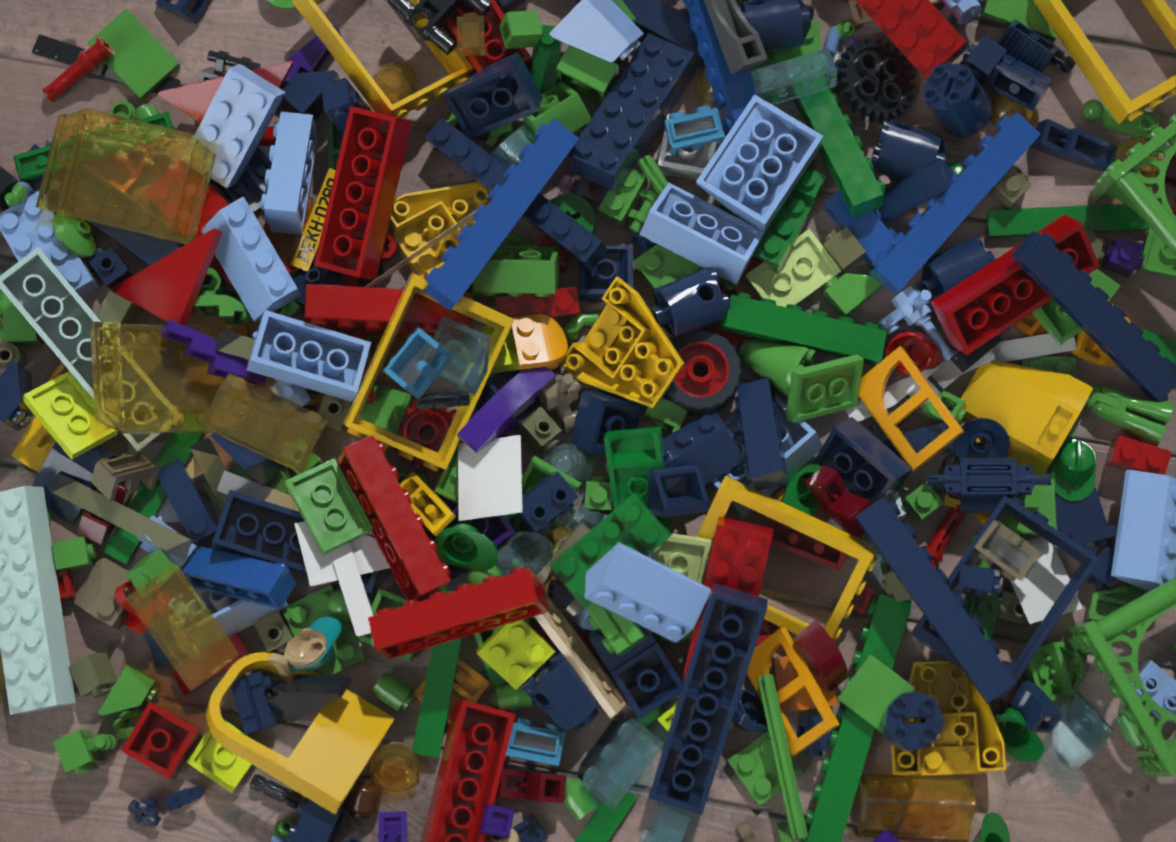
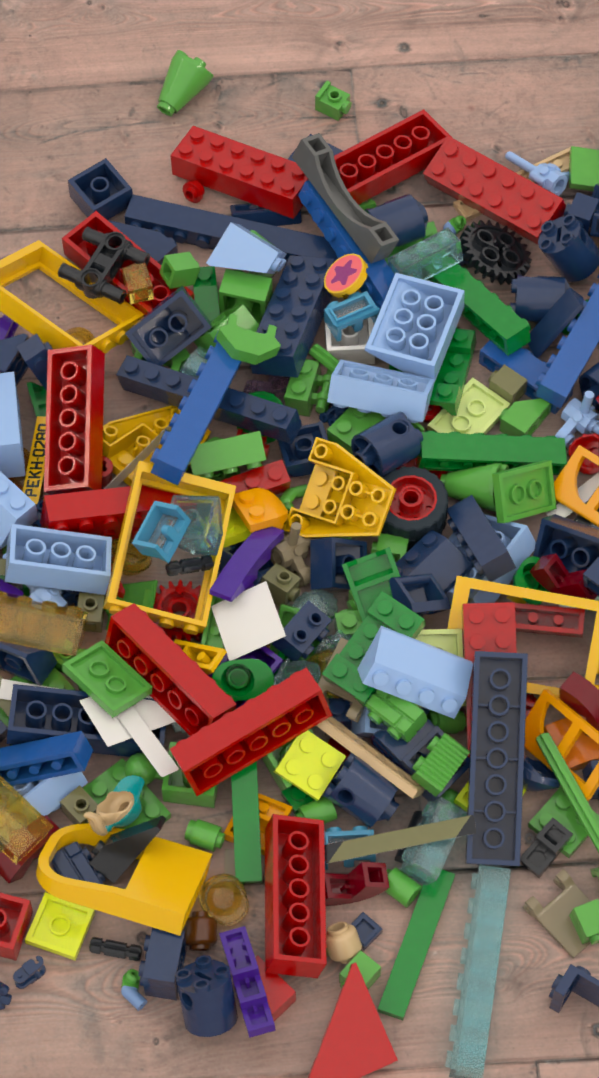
camera: 15 degrees left, 20 degrees down
(497, 821) = (332, 911): dark purple tile -> none
(566, 154) = (247, 344): none -> bright green piece
(586, 759) = (399, 839): none -> olive sticker
(647, 689) = (439, 764): none -> bright green brick
(699, 84) = (346, 275): none -> tile
(736, 793) = (546, 847): none -> black slope

